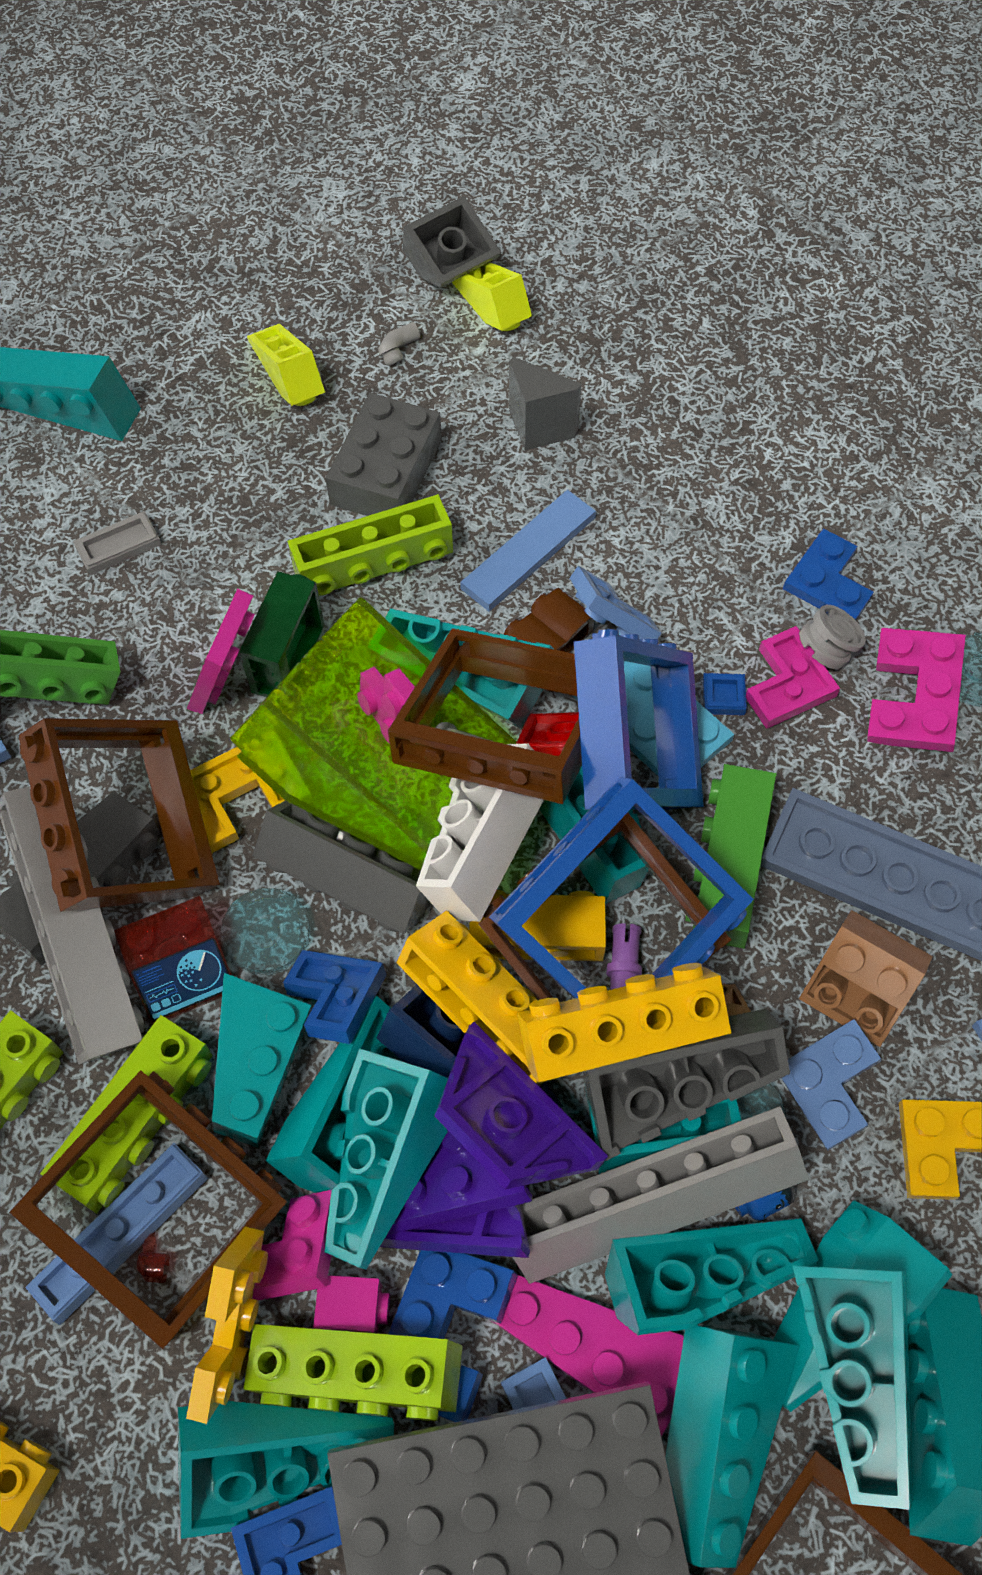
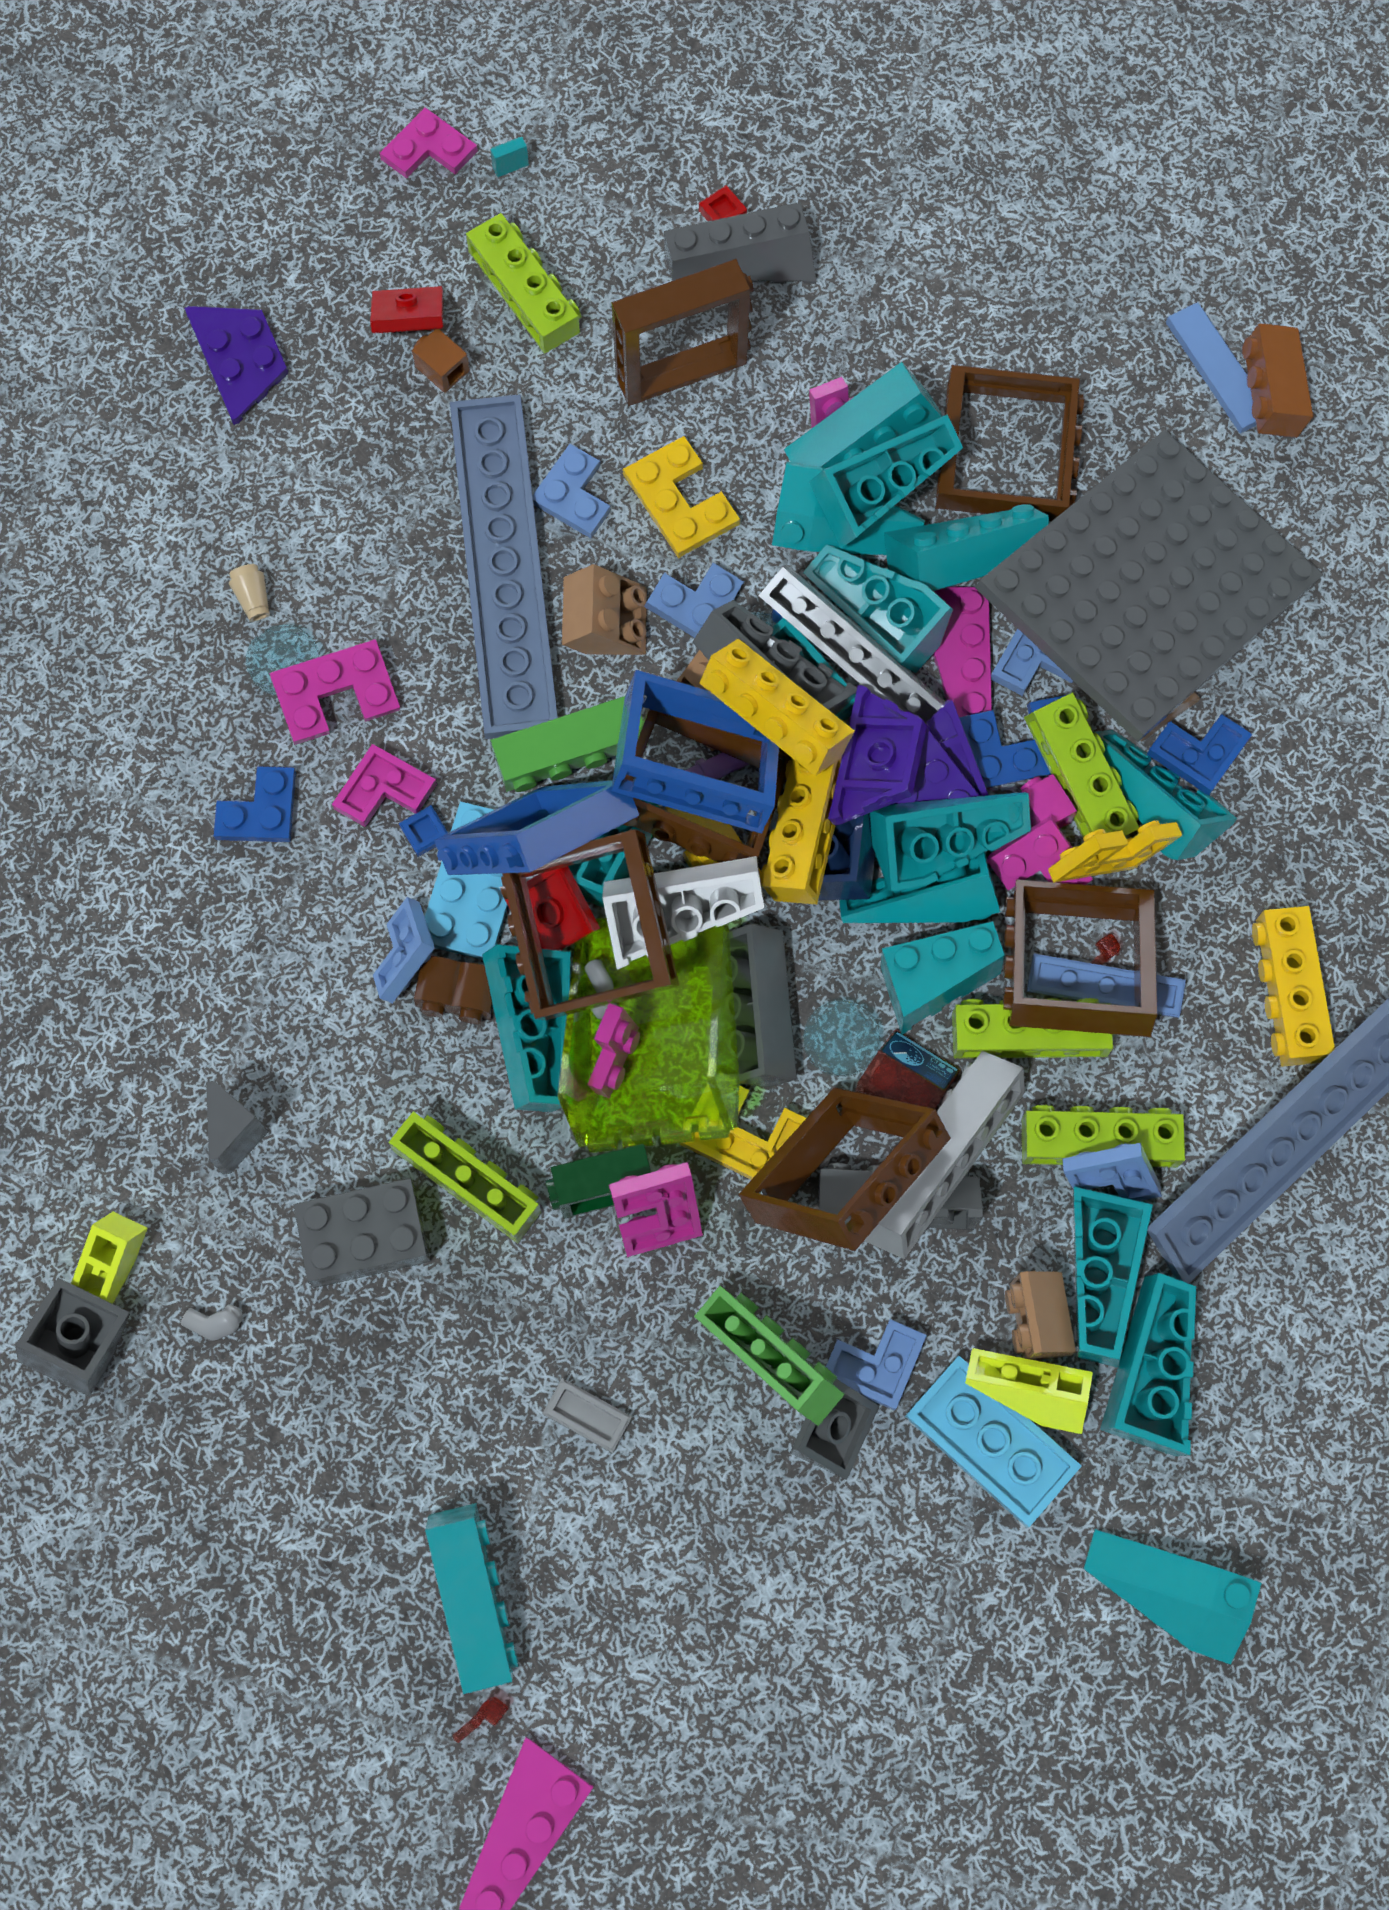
camera: 125 degrees left, 10 degrees up
(288, 364) = (300, 1406): neon yellow slope -> none
(342, 992) = (846, 948): blue plate -> none
(527, 550) = (377, 1060): medium blue tile -> none
(832, 636) = (328, 770): light grey wheel -> none

